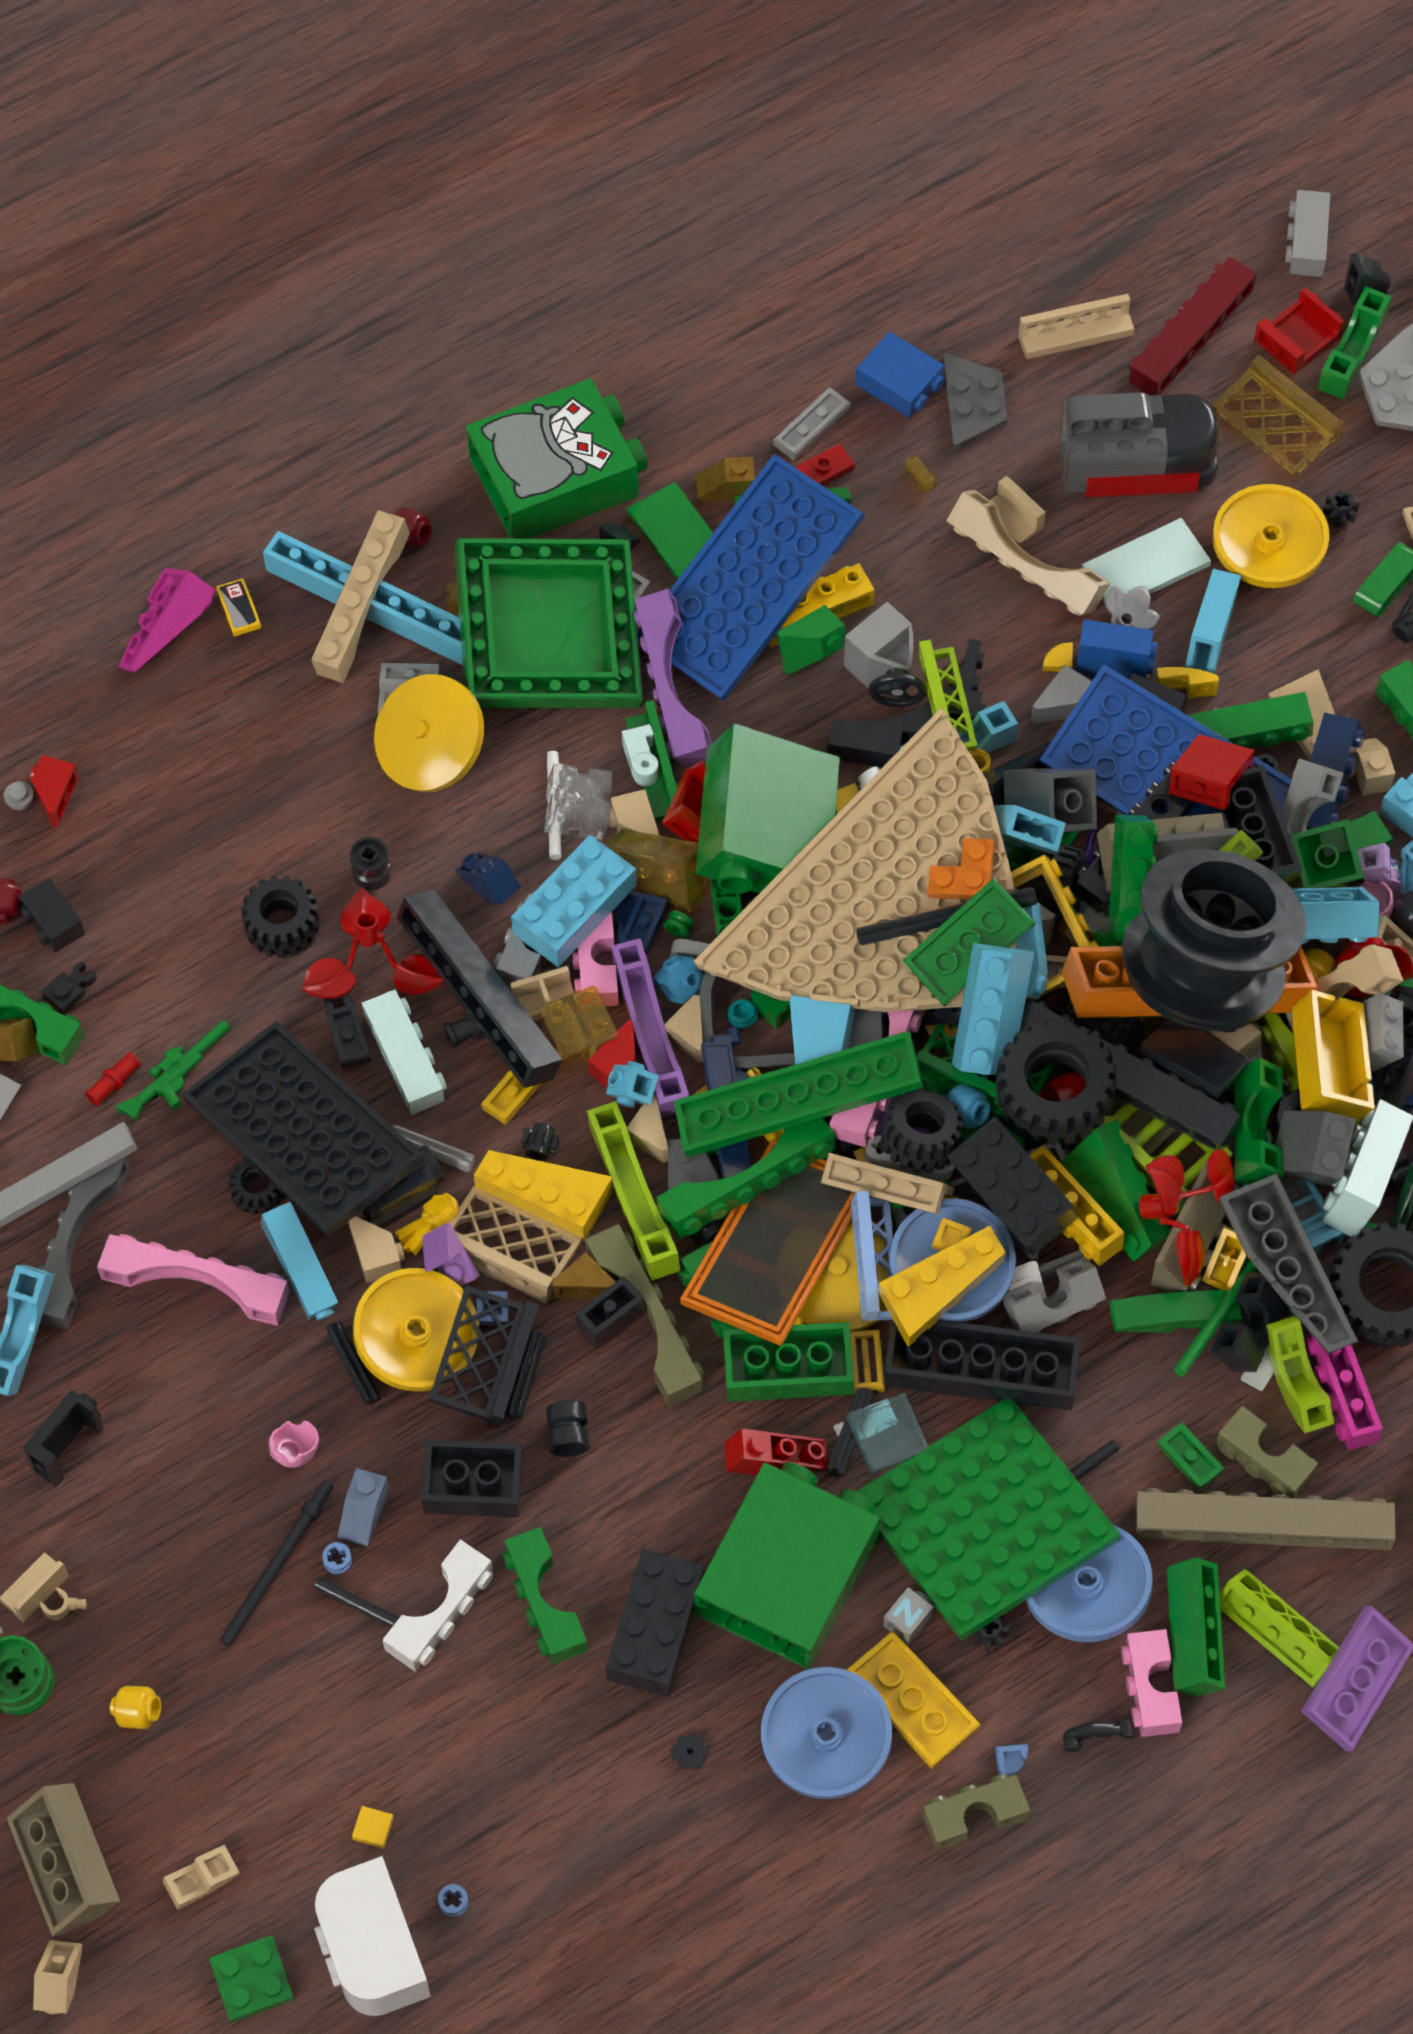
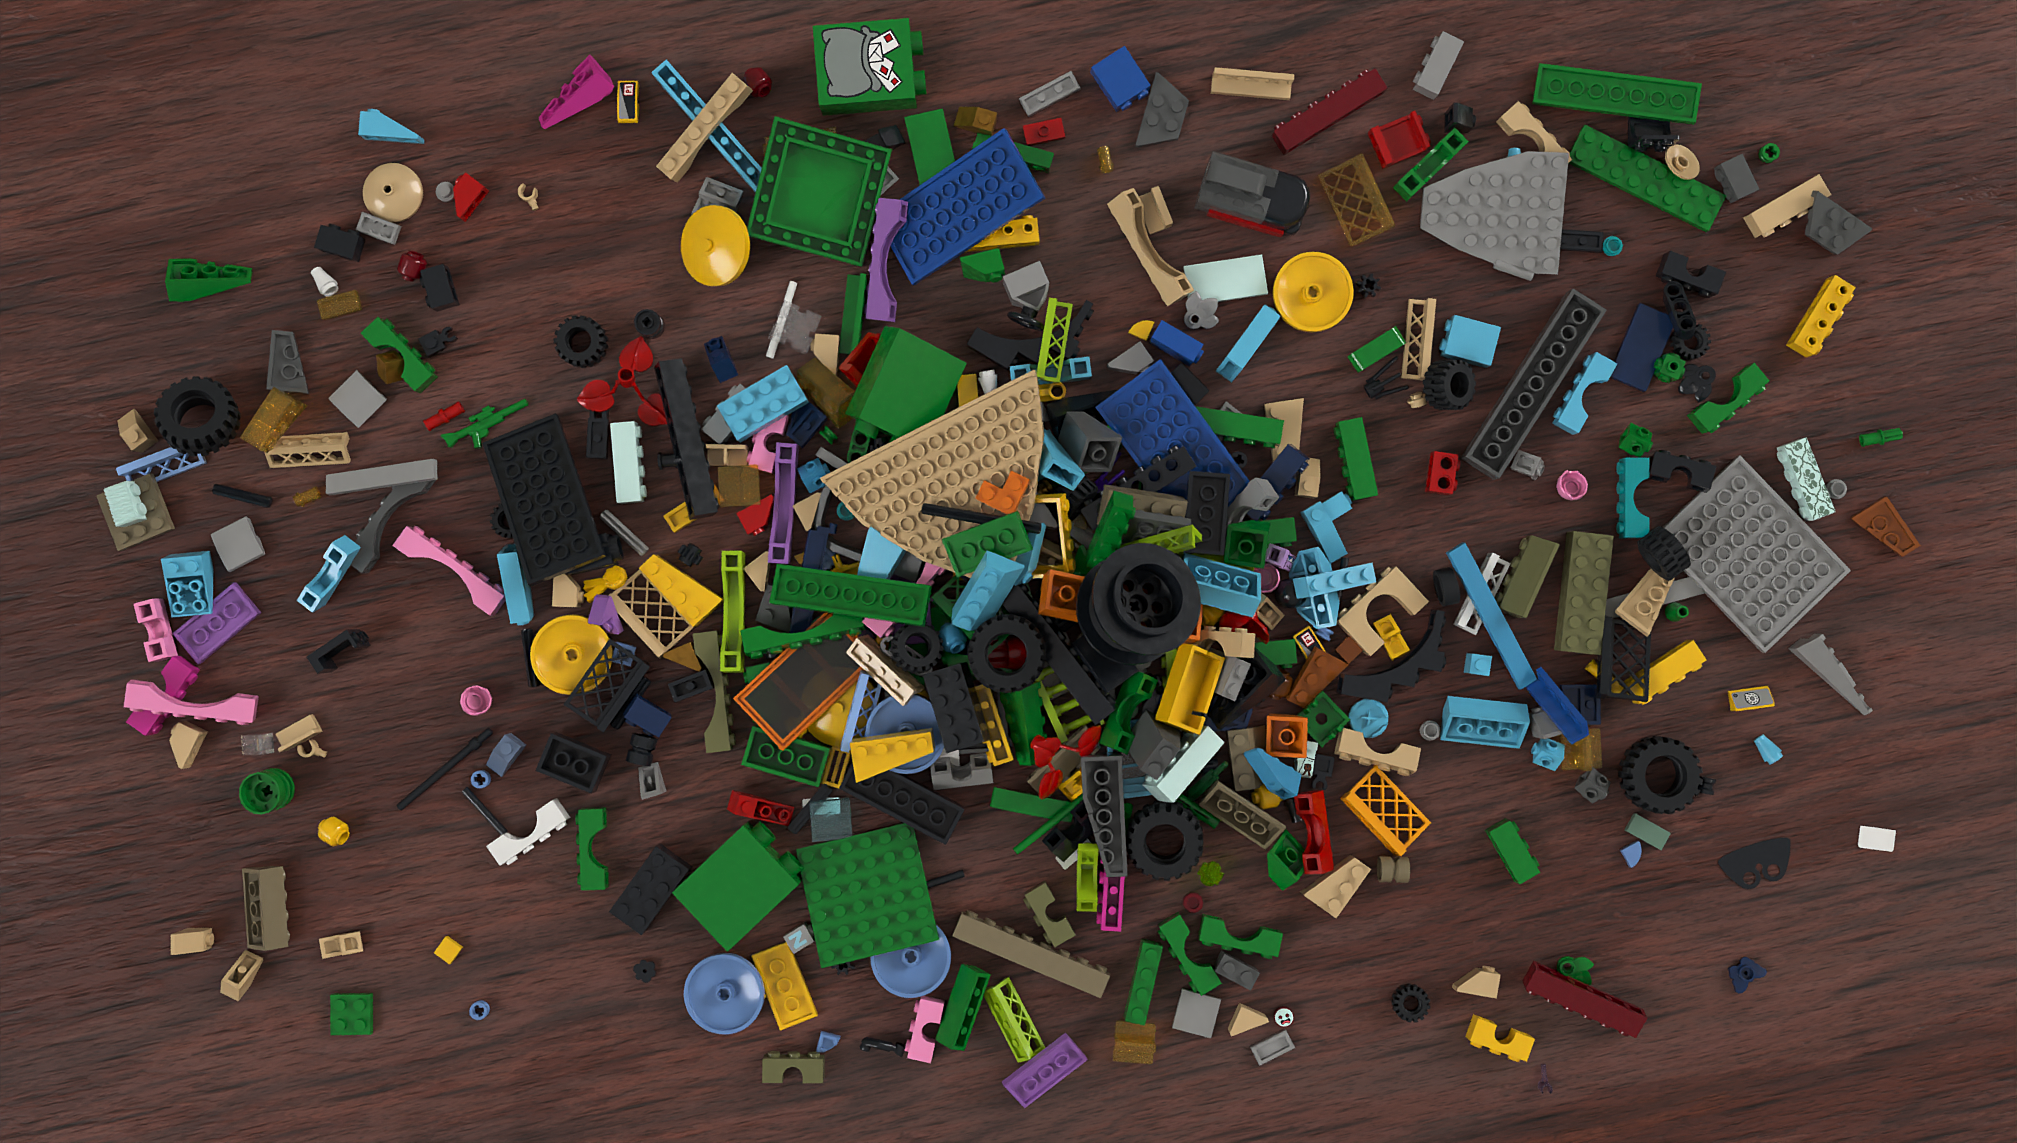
camera: 15 degrees right, 25 degrees up
(140, 769) = (532, 199): none -> tan piece
(368, 1940) = (420, 1024): white brick -> none
(558, 1375) = (647, 716): none -> dark blue brick
(599, 1472) = (651, 781): none -> light grey slope
(631, 1084) = (754, 543): medium azure brick -> none
(640, 760) = (844, 308): light aqua leg -> none
(949, 1234) = (908, 720): yellow tile -> none
(1190, 1456) = (1004, 898): green plate -> none
(1195, 681) = (1220, 380): yellow slope -> none
(1209, 771) = (1195, 465): red panel -> none

